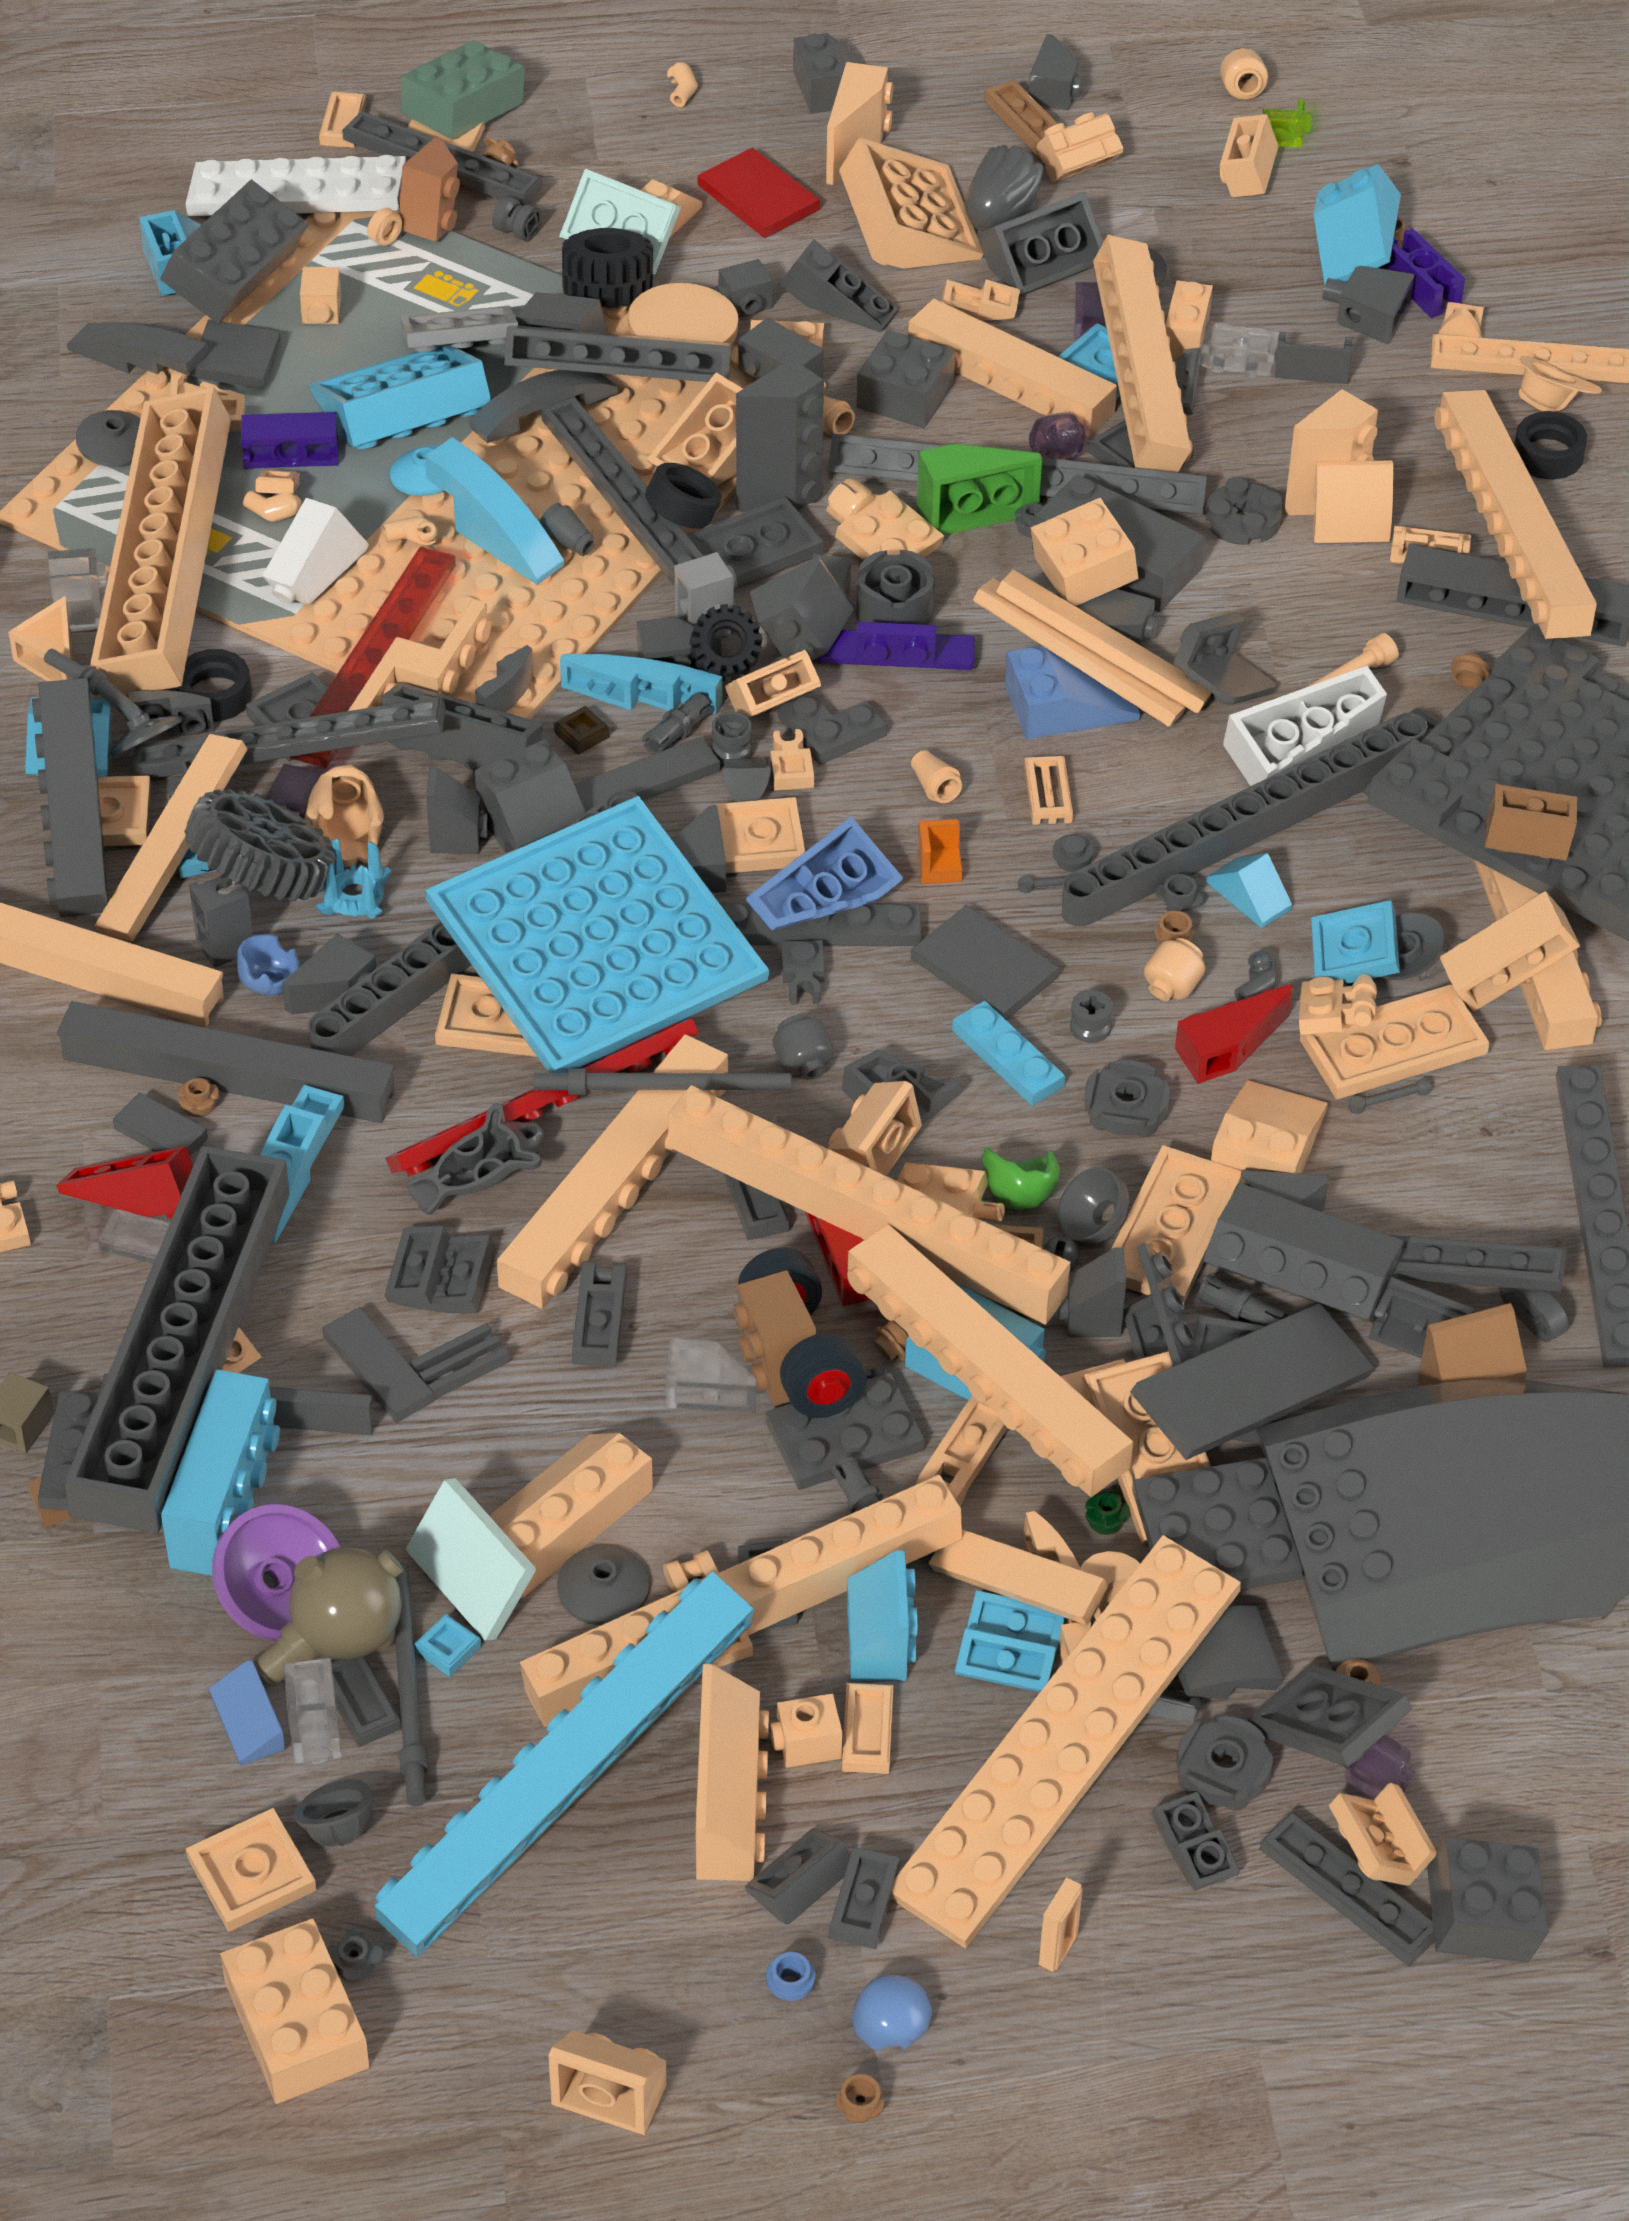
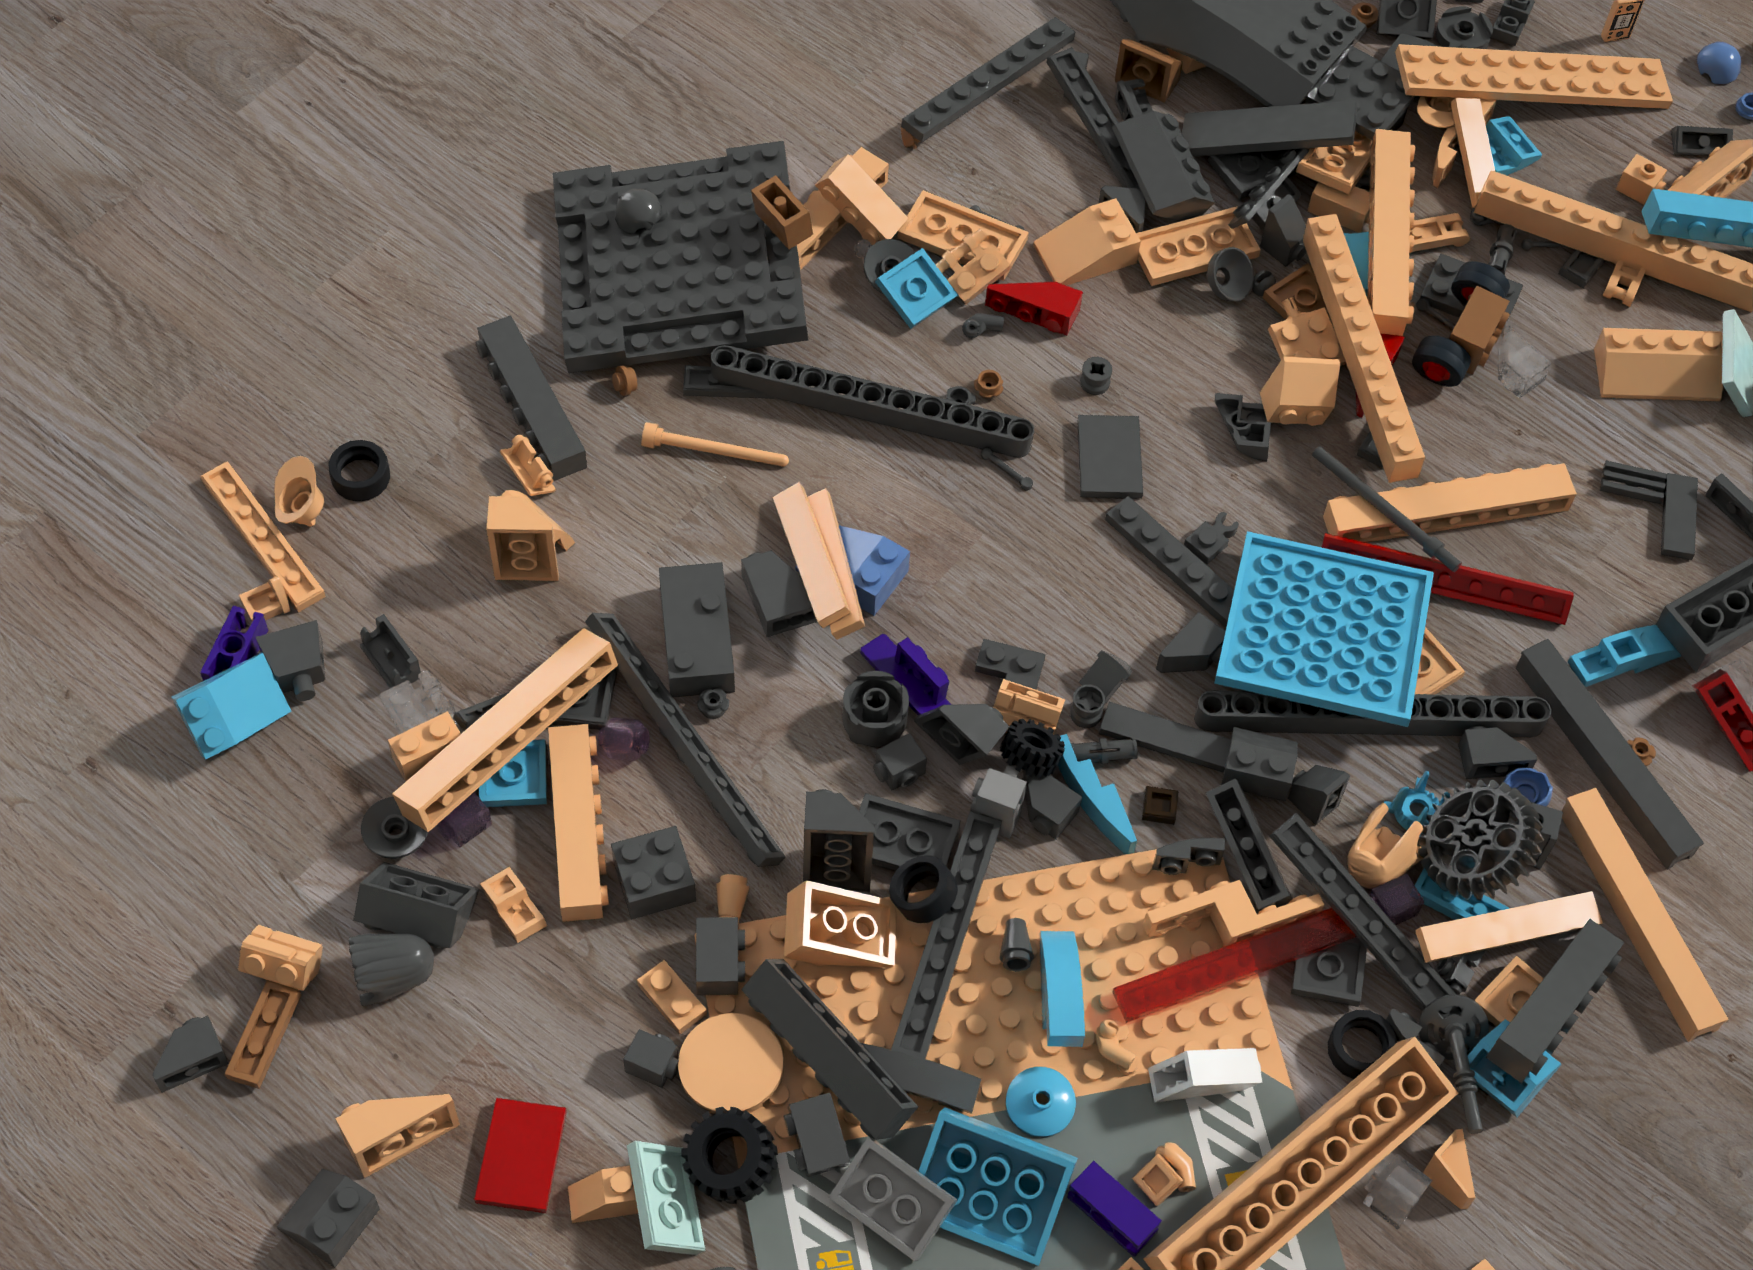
camera: 135 degrees left, 10 degrees up
(158, 1126) = (1678, 752): dark grey tile -> none
(440, 1270) = (1596, 537): dark grey slope -> none
(480, 1160) = (1522, 561): dark grey animal -> none
(599, 1314) = (1537, 441): dark grey plate -> none
(602, 1599) = (1664, 316): dark grey dish -> none
(760, 834) = (1140, 631): light nougat plate -> none
(791, 763) = (1069, 661): light nougat plate -> none
(803, 1046) = (1272, 484): dark grey head -> none
(826, 879) = (1144, 559): medium blue wedge -> none
(835, 289) = (595, 998): dark grey slope -> none
(864, 1897) = (1686, 105): dark grey plate -> none
(867, 1728) = (1604, 169): light nougat tile -> none
(879, 522) = (812, 766): light nougat plate -> none
(882, 1620) = (1568, 174): medium azure slope -> none
(907, 207) = (454, 1024): light nougat slope -> none
(936, 777) = (999, 579): light nougat cone -> none
(939, 851) = (1059, 532): orange panel -> none
(975, 485) = (742, 736): bright green slope -> none
(1008, 1053) = (1159, 400): medium azure plate -> none
(1021, 1183) = (1242, 321): bright green hair -> none
(1050, 811) = (950, 532): light nougat tile -> none
(1072, 852) = (981, 473): dark grey plate -> none
(1084, 552) = (759, 599): light nougat brick -> none
(1127, 1117) = (1133, 336): dark grey plate -> none
(1174, 969) = (1023, 358): light nougat head -> none
(1210, 660) = (756, 492): dark grey bracket -> none
(1237, 496) = (582, 578): dark grey plate -> none
(1238, 1304) = (1214, 184): dark grey pin -> none
(1243, 74) = (77, 922): light nougat head -> none
(1248, 156) = (193, 837): light nougat brick -> none
(1252, 888) = (917, 371): medium azure slope -> none
(1290, 124) = (116, 842): clear neon green bracket -> none
(1303, 723) = (770, 418): white wedge -> none
(1516, 515) = (468, 424): light nougat brick -> none

